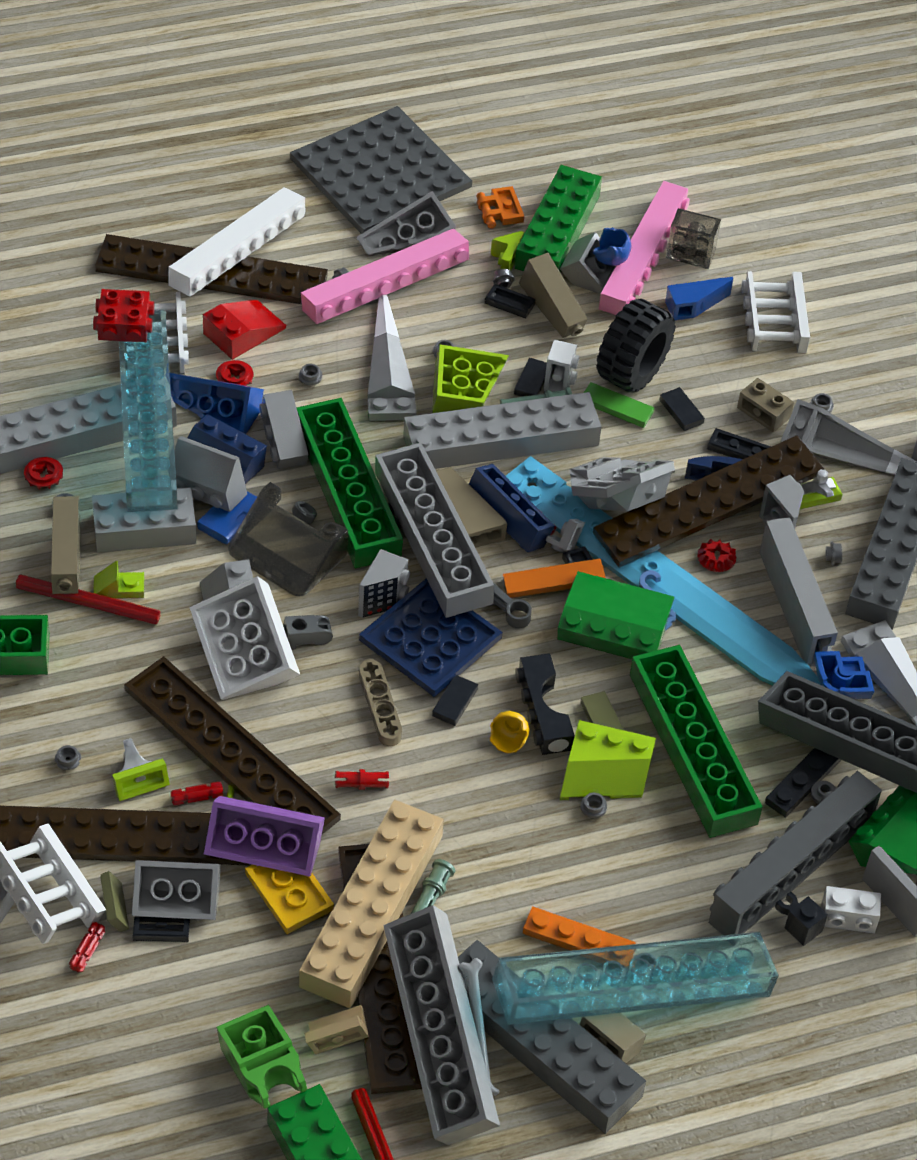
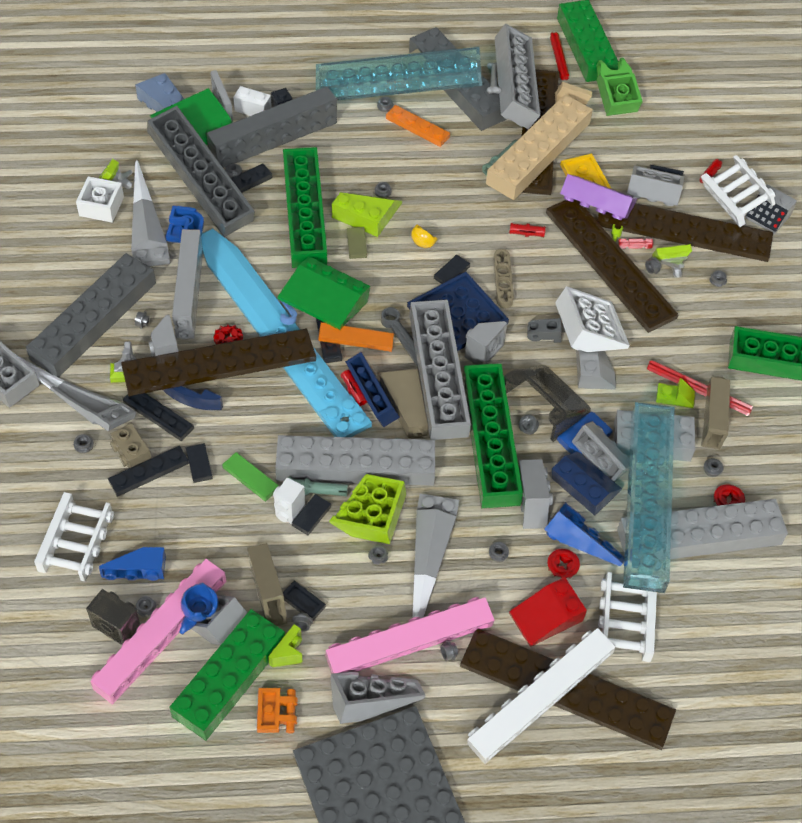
camera: 165 degrees left, 5 degrees up
(114, 901) = (693, 187): olive tile -> none
(123, 315) = (666, 561): red brick -> none
(168, 756) = (653, 265): none -> flat silver plate
(552, 729) = (392, 267): black arch -> none
(570, 534) = (335, 360): light grey bracket -> none
(619, 483) = (278, 396): light grey piece -> none
(635, 345) = (222, 488): black tyre -> none
(669, 268) = (145, 601): none -> flat silver plate
(727, 396) = (148, 471): none -> black plate

